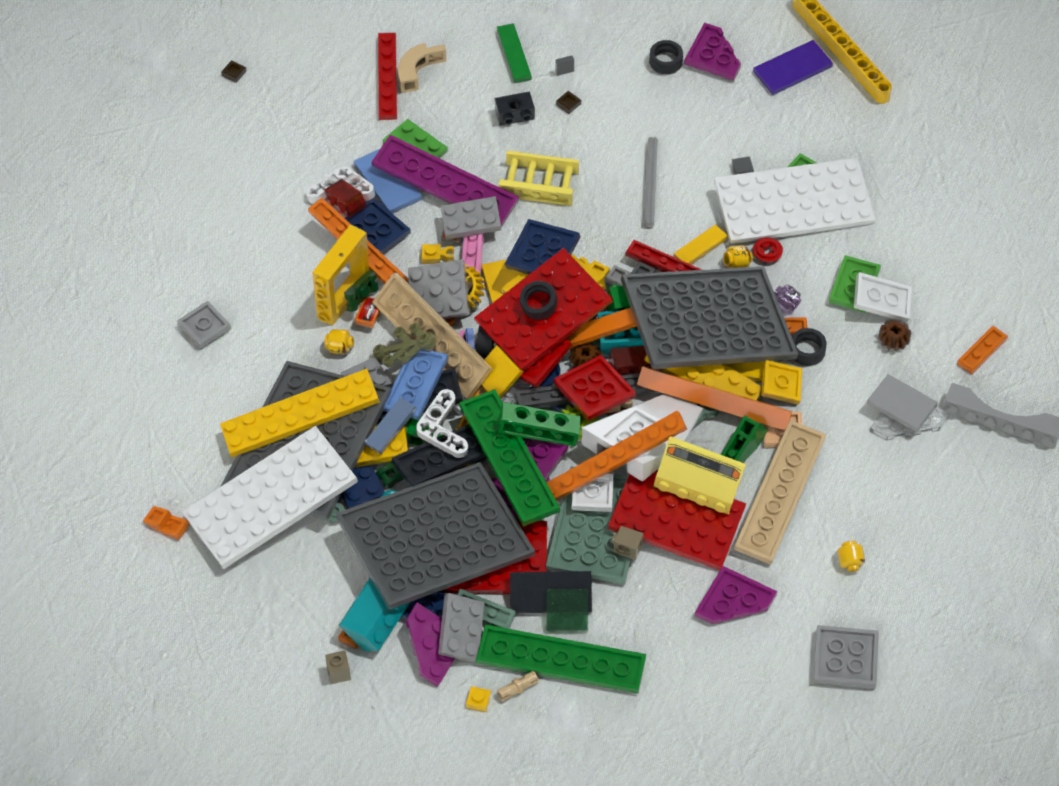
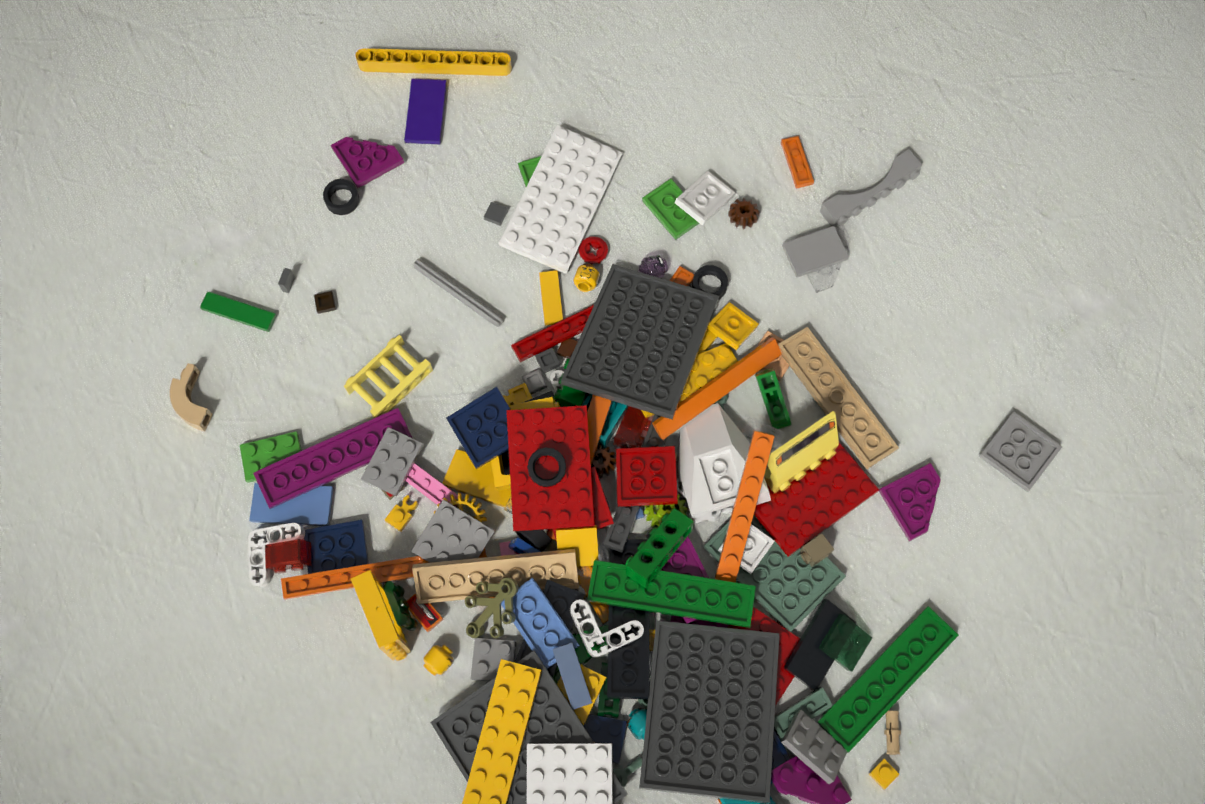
camera: 55 degrees left, 15 degrees up
(204, 324) = (329, 770): light grey plate -> none
(233, 71) = (62, 562): dark brown tile -> none
(387, 76) = (177, 431): red plate -> none
(514, 108) = (300, 339): black brick -> none
(851, 556) = (931, 385): yellow head -> none

